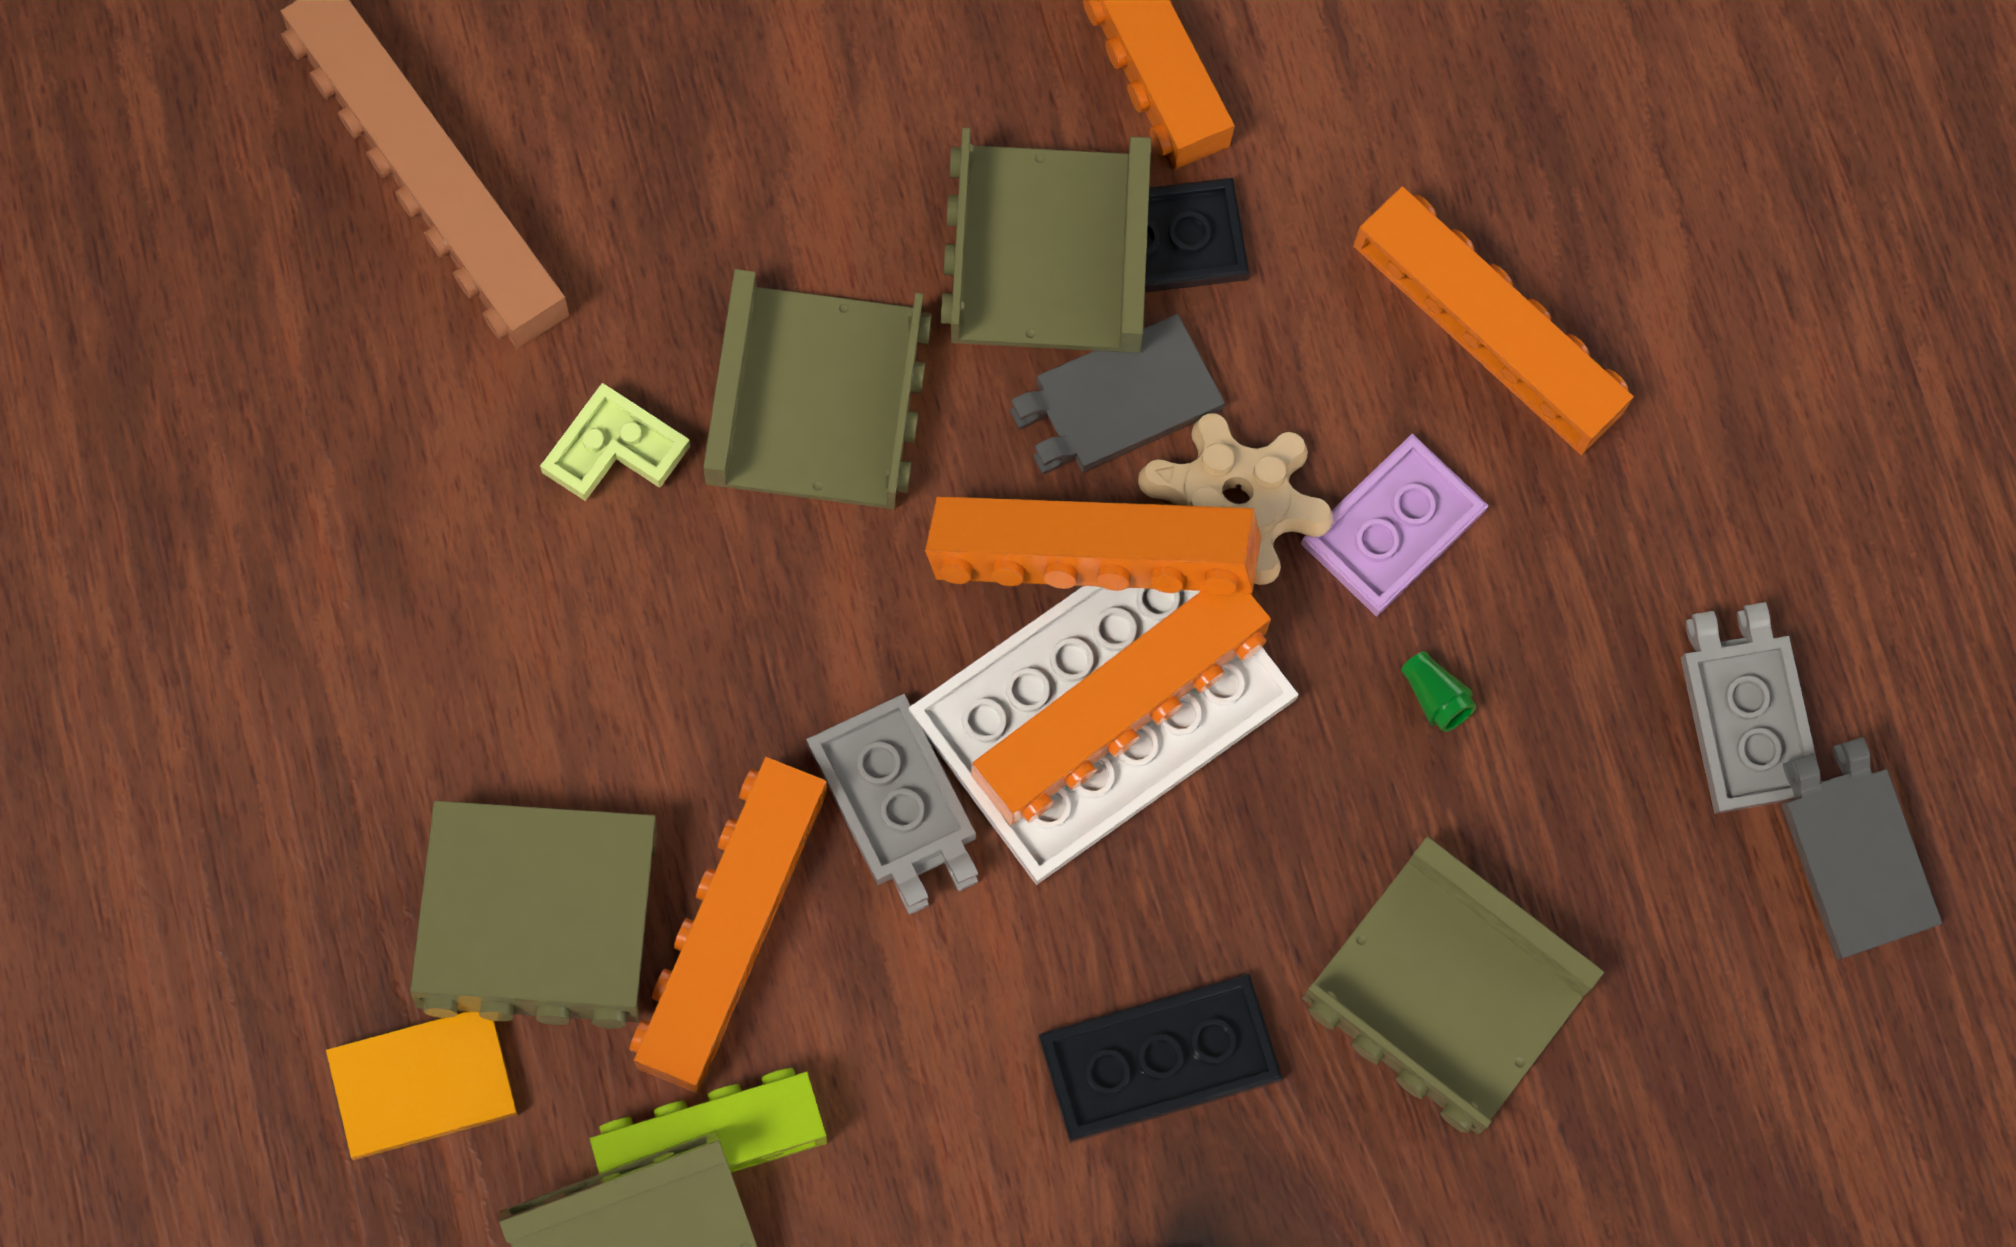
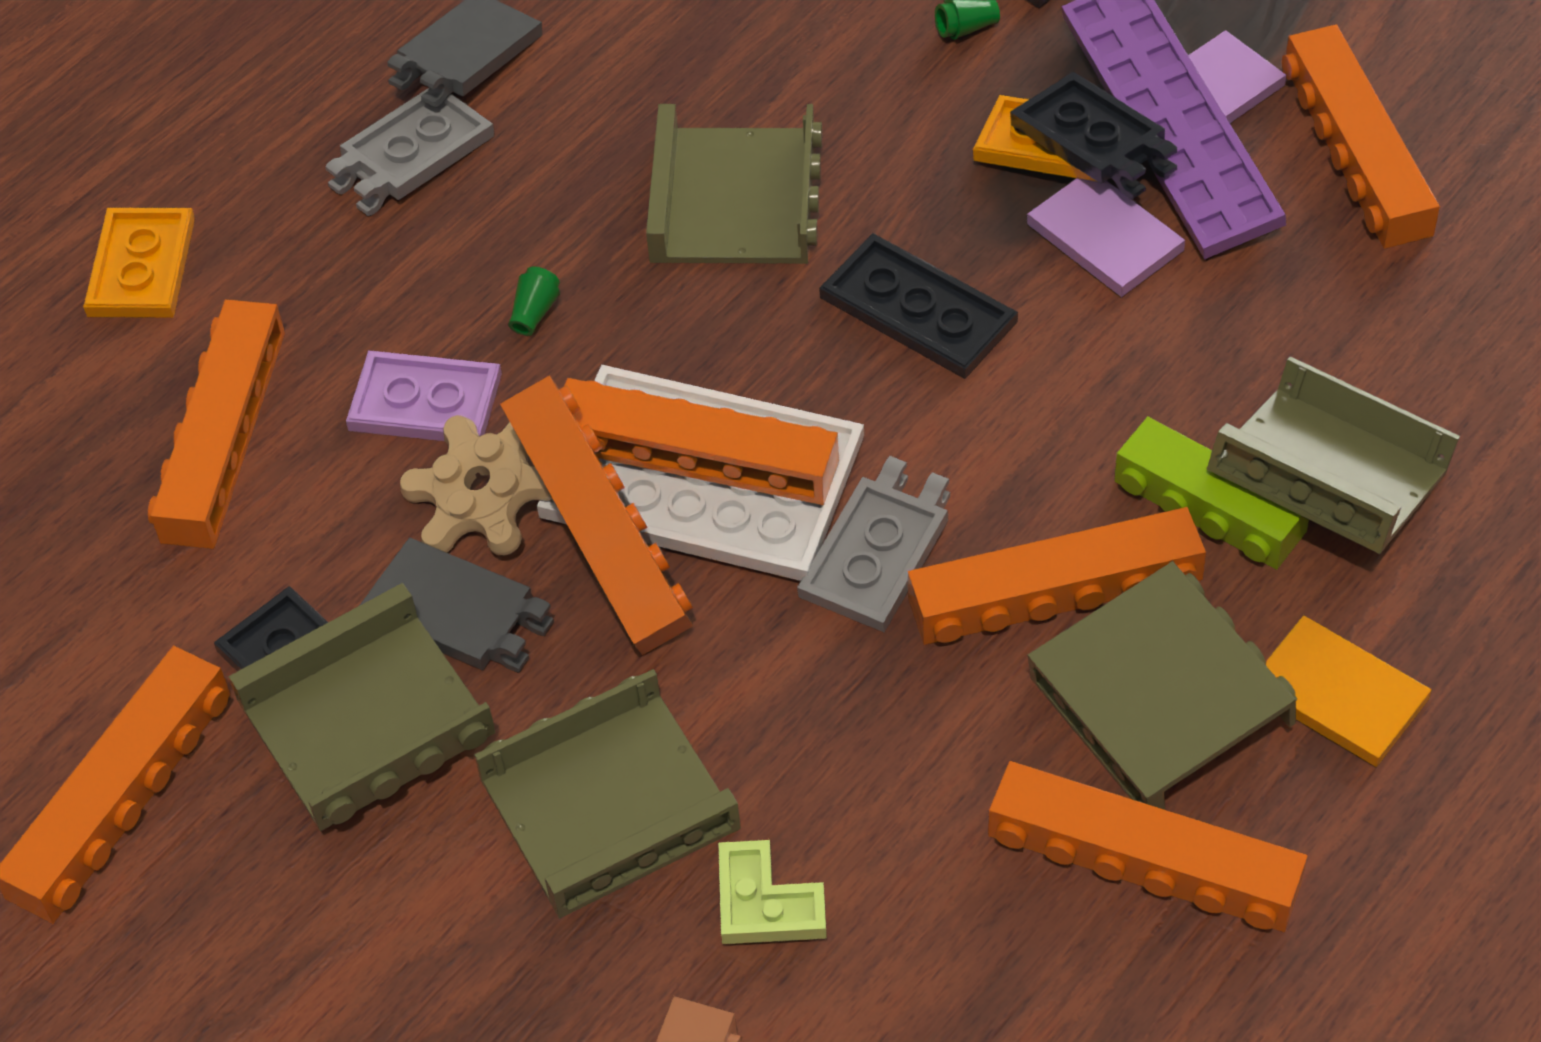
camera: 115 degrees left, 20 degrees down
(403, 779) = (1147, 846): none -> orange brick
(1774, 374) = (139, 262): none -> light orange tile

